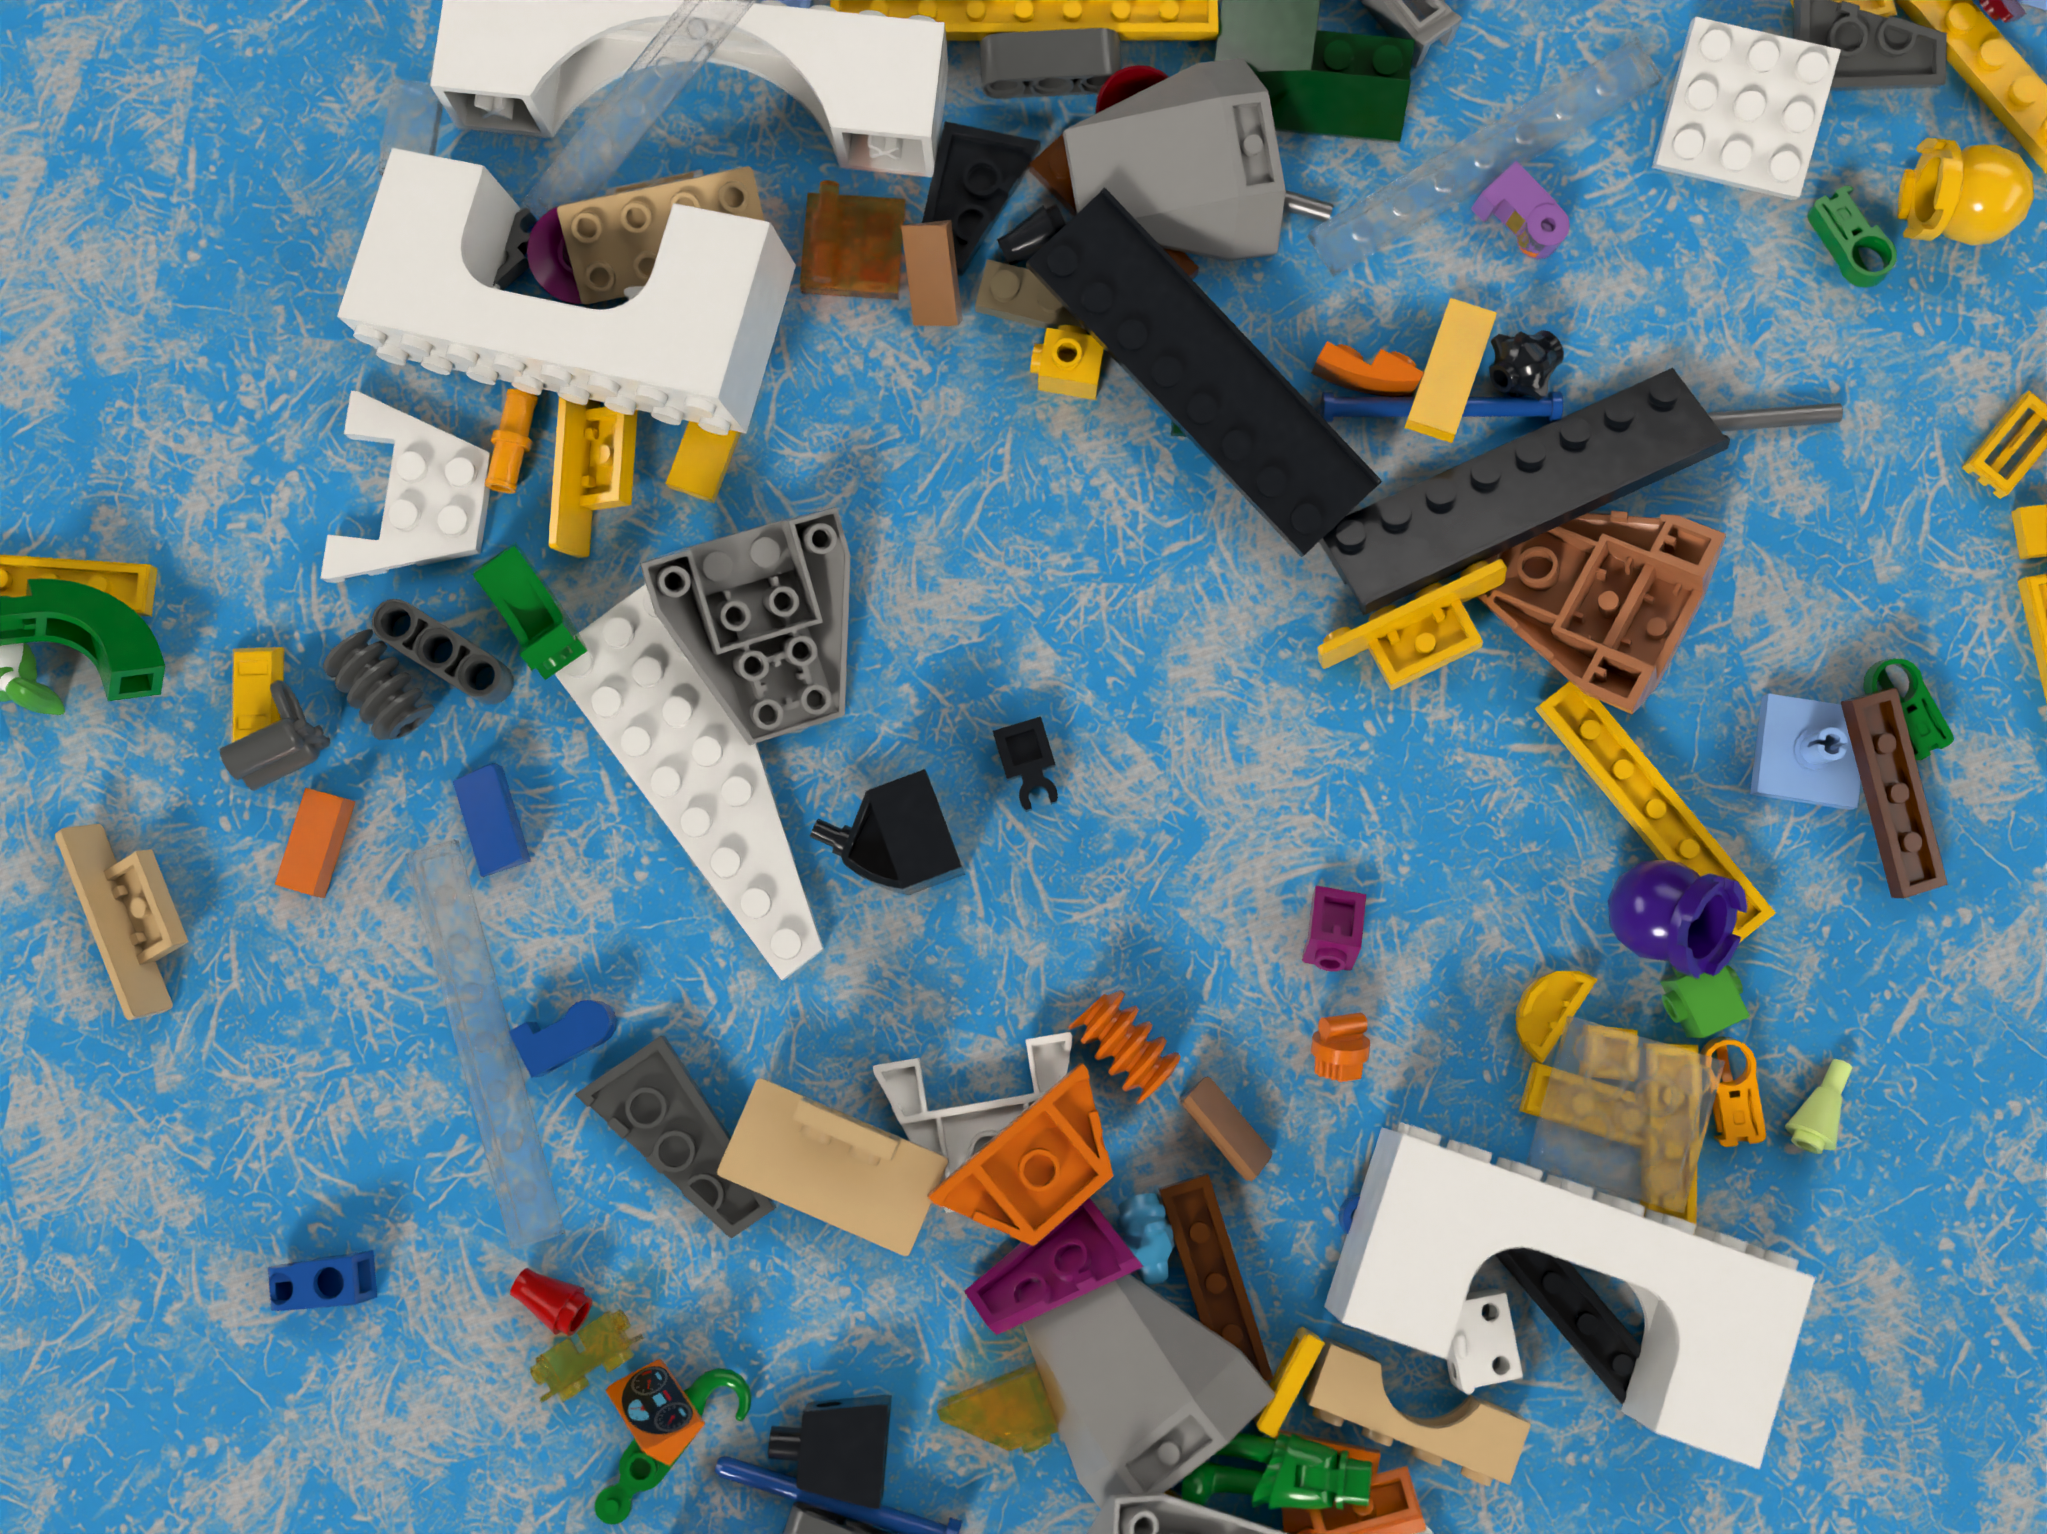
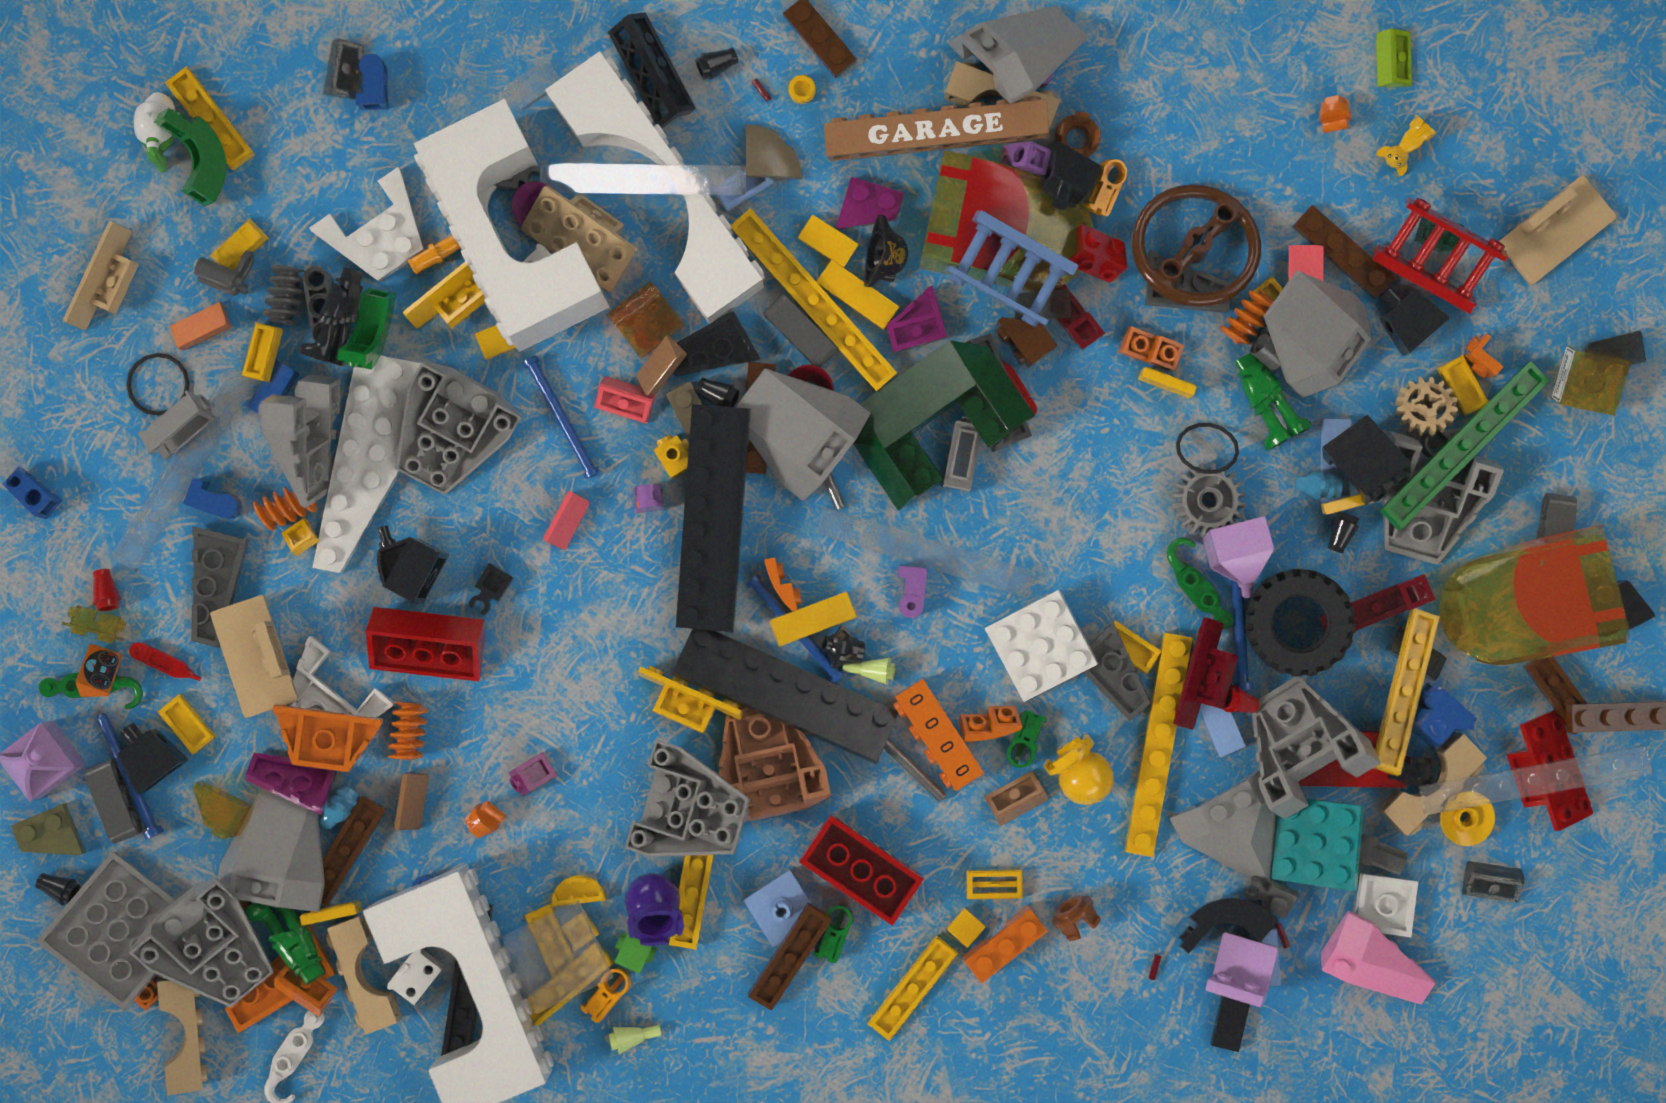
camera: 45 degrees right, 5 degrees up
(156, 352) = (343, 69): none -> clear smoke slope
(200, 315) = (374, 84): none -> blue leg
(294, 944) = (135, 367): none -> black piece
(418, 989) = (177, 425): none -> light grey window
(427, 788) = (262, 352): none -> yellow tile
(472, 628) = (341, 310): none -> black piece
(581, 814) = (302, 432): none -> light grey wedge
(664, 937) = (281, 509): none -> orange piece
(721, 1309) = (161, 661): none -> red piece
(724, 959) = (300, 536): none -> yellow tile
(839, 1352) = (187, 724): none -> yellow tile
(880, 468) = (562, 419): none -> blue bar
(934, 367) = (624, 399): none -> coral slope
(1026, 580) = (566, 520): none -> coral slope
(1027, 914) = (425, 643): none -> red slope
(1095, 442) = (648, 498): none -> medium lavender leg
(1578, 745) = (687, 808): none -> light grey wedge
(1594, 345) = (879, 670): none -> yellowish green cone
(1751, 341) = (938, 734): none -> orange brick
(1797, 260) = (995, 724): none -> orange slope
(1855, 591) = (861, 869): none -> red brick
(1919, 317) = (1016, 798): none -> medium nougat slope

